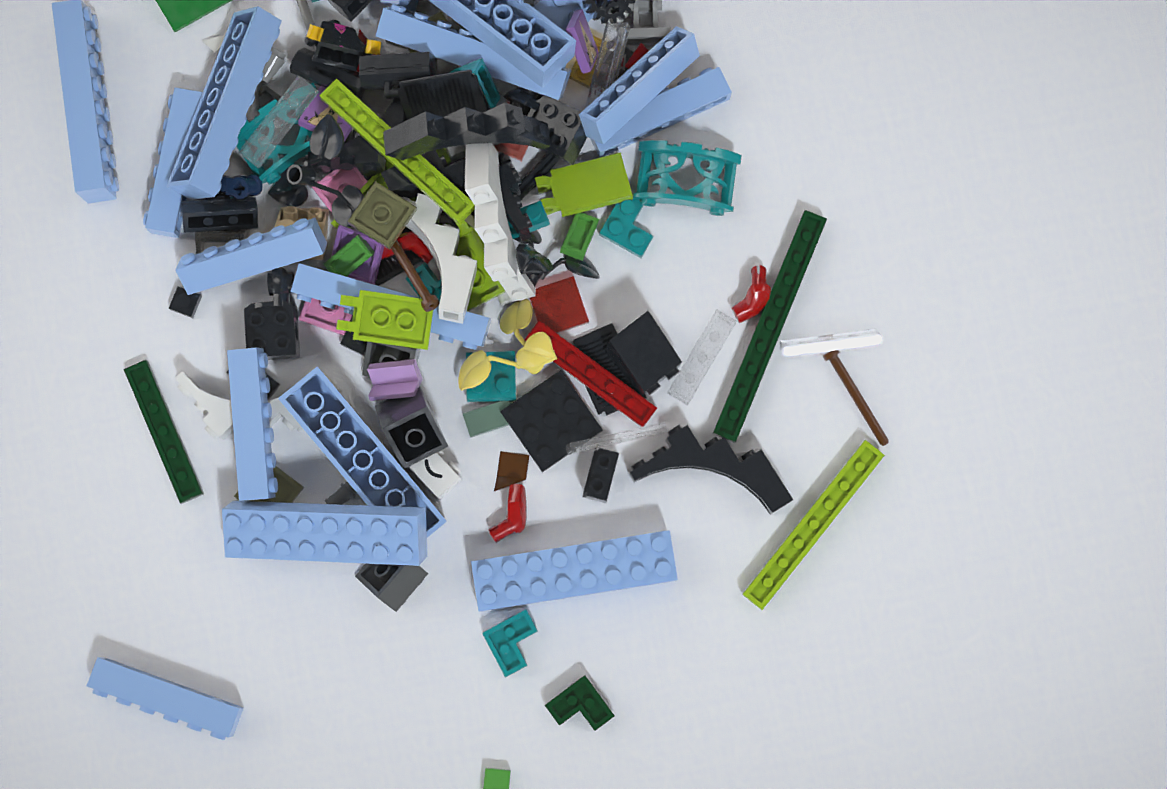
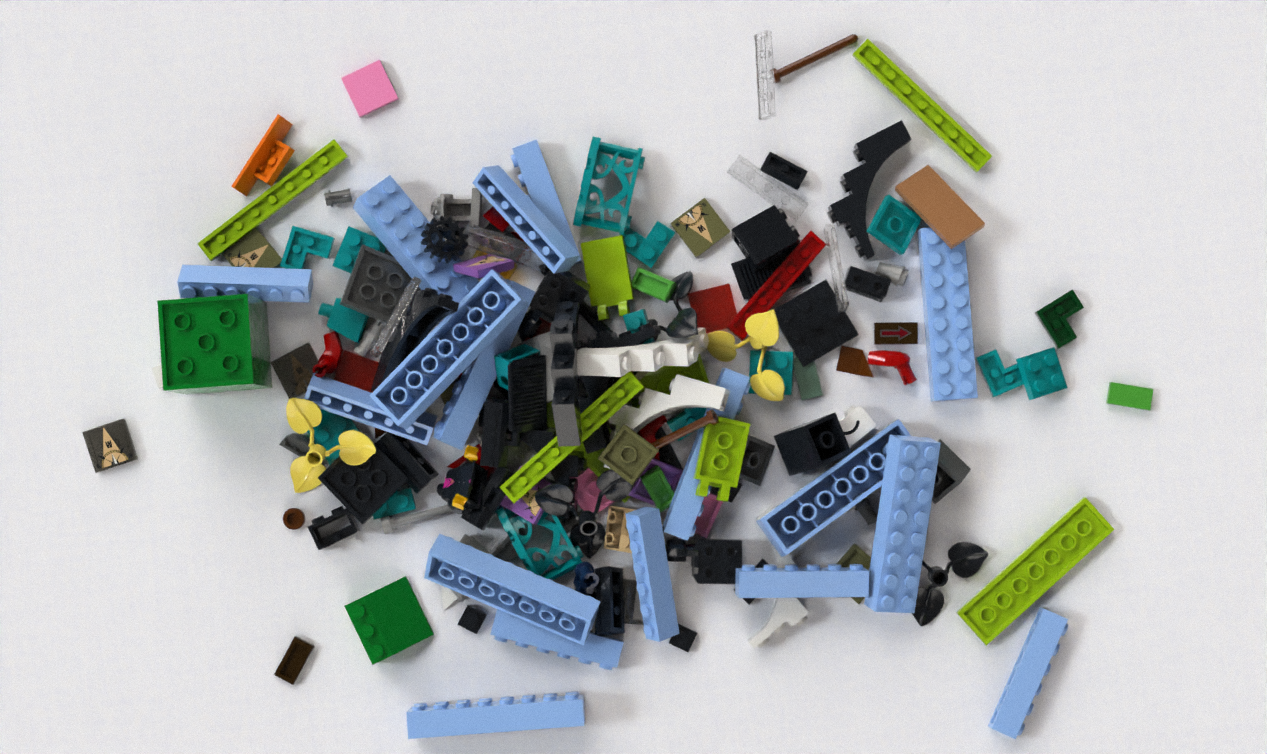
camera: 85 degrees left, 5 degrees up
(163, 431) = (796, 663): dark green tile -> none
(192, 71) = (472, 619): none -> black plate
(241, 576) = (965, 562): none -> black plant
(278, 121) = (533, 542): clear tile -> none
(284, 697) = (1035, 571): none -> lime plate
(394, 379) = (770, 456): lavender panel -> none
(513, 687) = (1041, 373): none -> teal plate
(547, 515) = (896, 333): none -> dark brown tile
(615, 507) = (895, 273): none -> light grey cone
(649, 284) = (700, 227): none -> olive tile
(671, 501) = (894, 224): none -> teal plate
(696, 551) = (939, 206): none -> medium nougat tile
(723, 371) = (783, 170): none -> black plate
(756, 296) = (720, 135): red arm -> none
(769, 326) = (745, 126): dark green plate -> none

